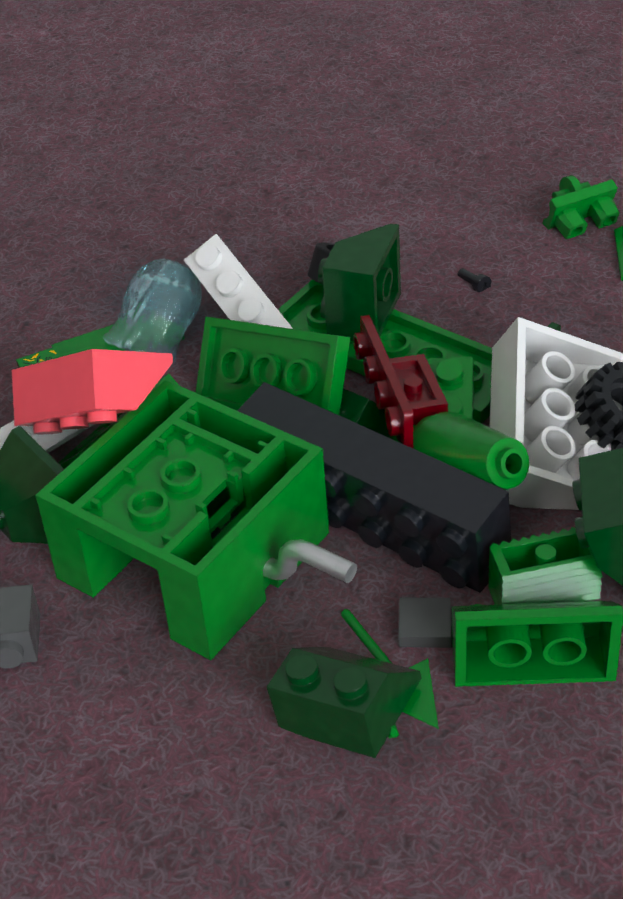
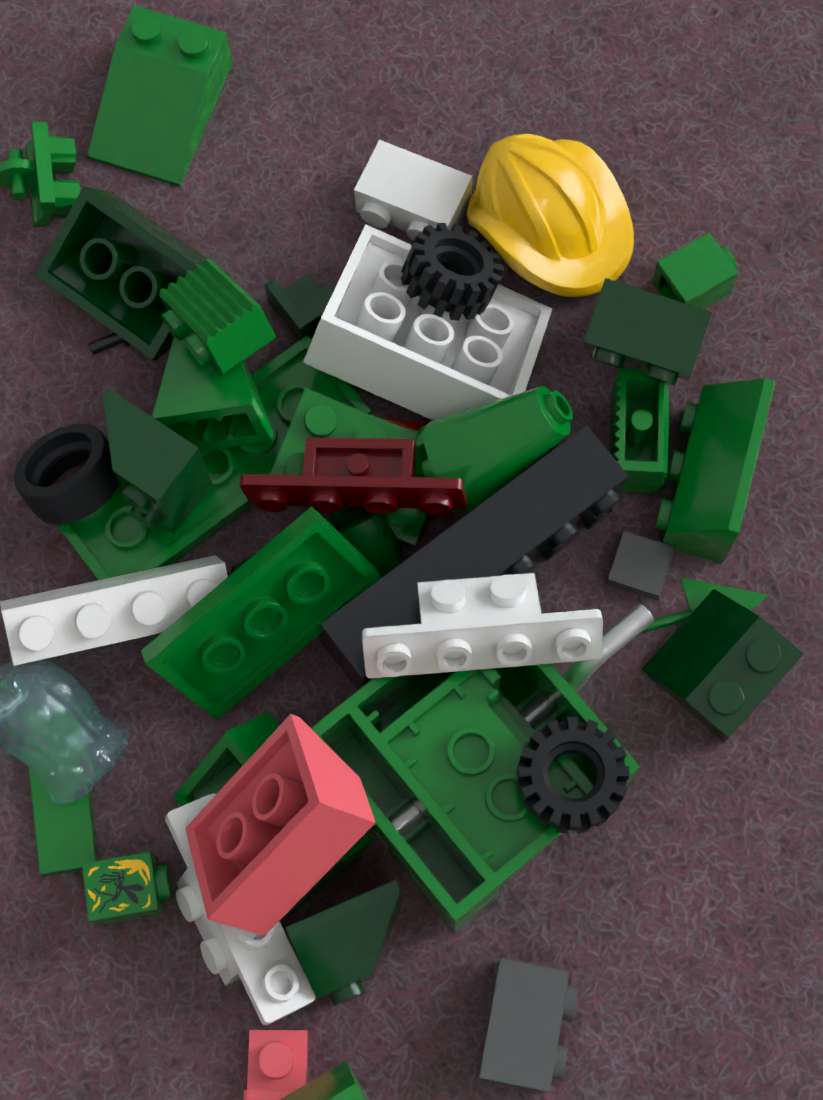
camera: 75 degrees left, 30 degrees up
(170, 541) = (592, 744): none -> black tyre
(280, 439) = (481, 627): none -> white bracket
(446, 310) = (210, 406): none -> green slope
(495, 279) = (215, 317): none -> green brick
(527, 262) = (114, 266): none -> dark green slope

